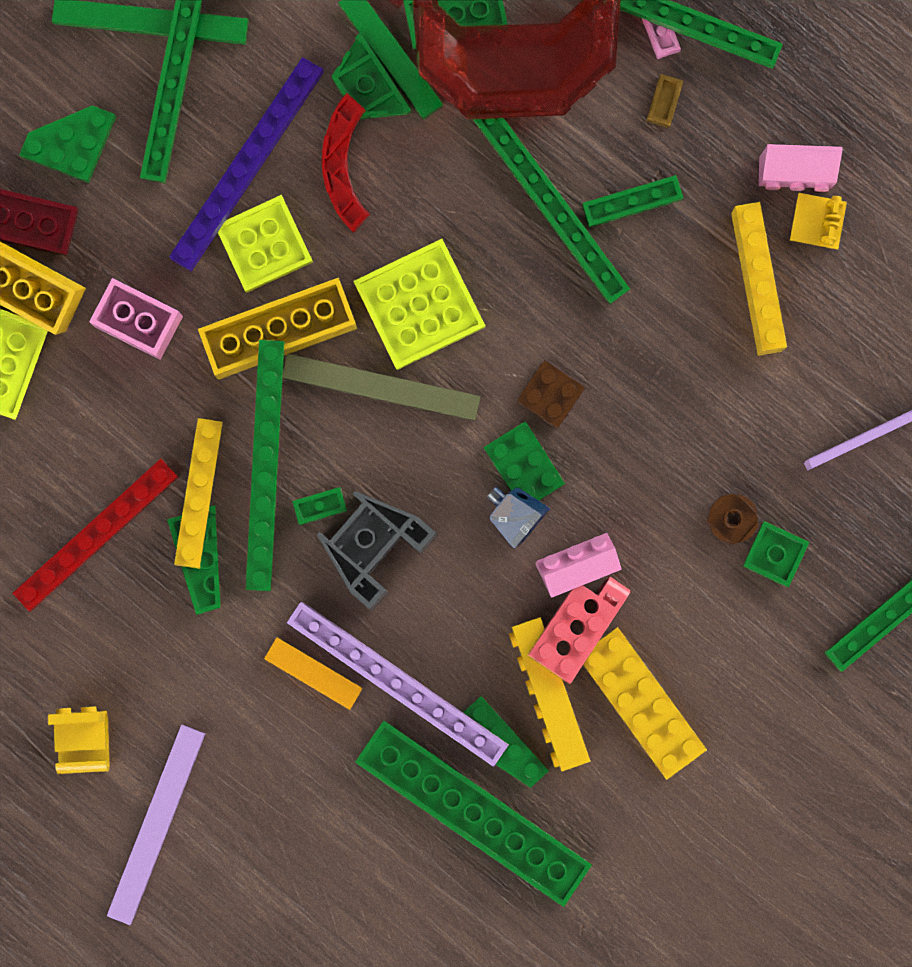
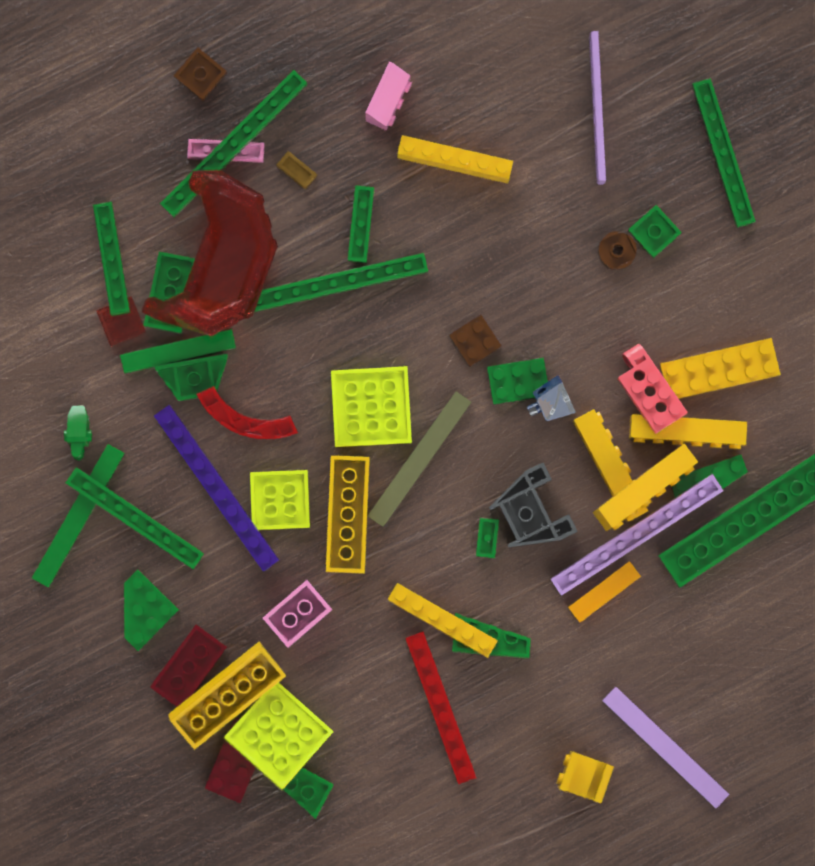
camera: 70 degrees left, 0 degrees up
(265, 465) = (443, 564): green plate -> none
(457, 669) = (645, 487): none -> yellow brick
(468, 617) = (604, 454): none -> yellow brick
(578, 565) = (606, 371): bright pink slope -> none
(818, 220) = (430, 99): yellow hinge -> none

